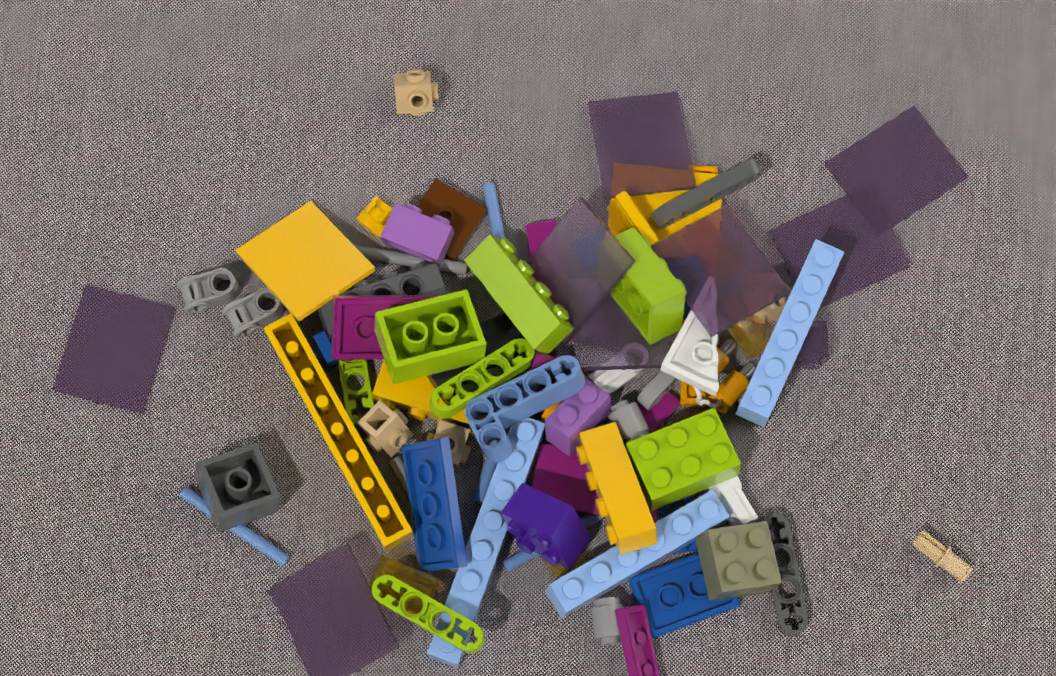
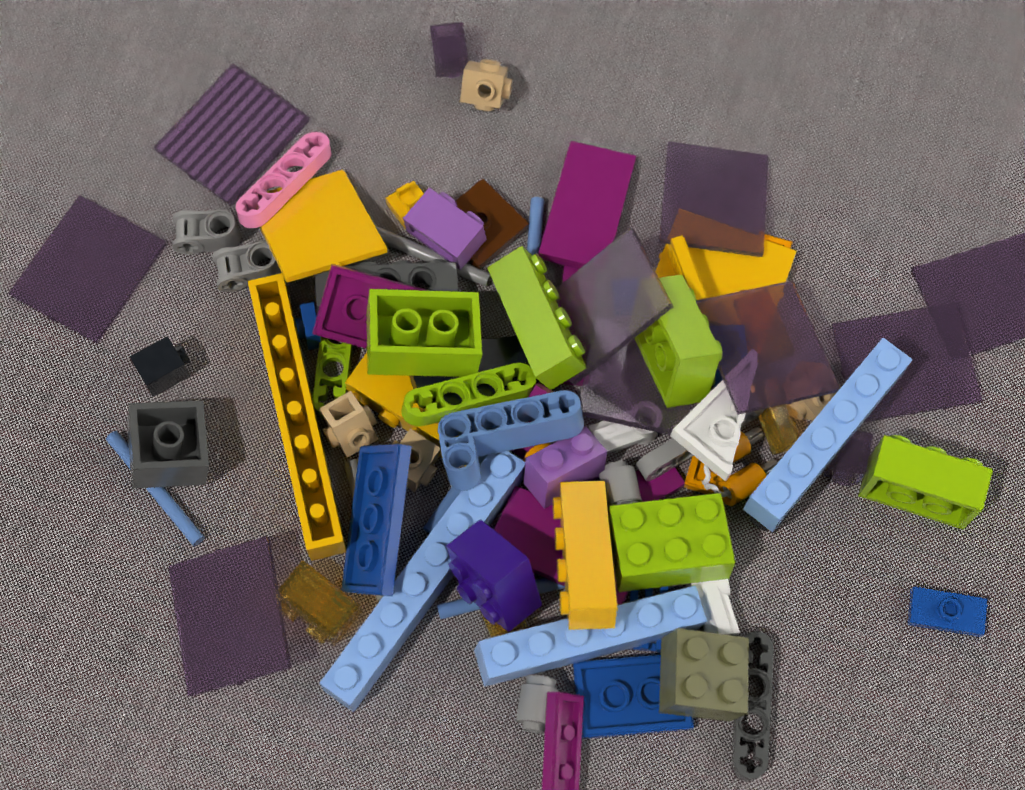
camera: 15 degrees right, 5 degrees down
(202, 193) = (231, 134): none -> clear purple piece
(208, 419) = (161, 365): none -> black brick
(268, 226) = (259, 206): none -> bright pink beam
(373, 67) = (448, 49): none -> clear purple brick
(426, 617) = (332, 638): lime beam -> none
(533, 179) = (586, 204): none -> magenta tile
(707, 193) = (773, 264): dark grey beam -> none
(879, 350) = (926, 481): none -> lime brick
(923, 453) = (947, 611): none -> blue plate
(942, 556) = (942, 734): tan axle -> none

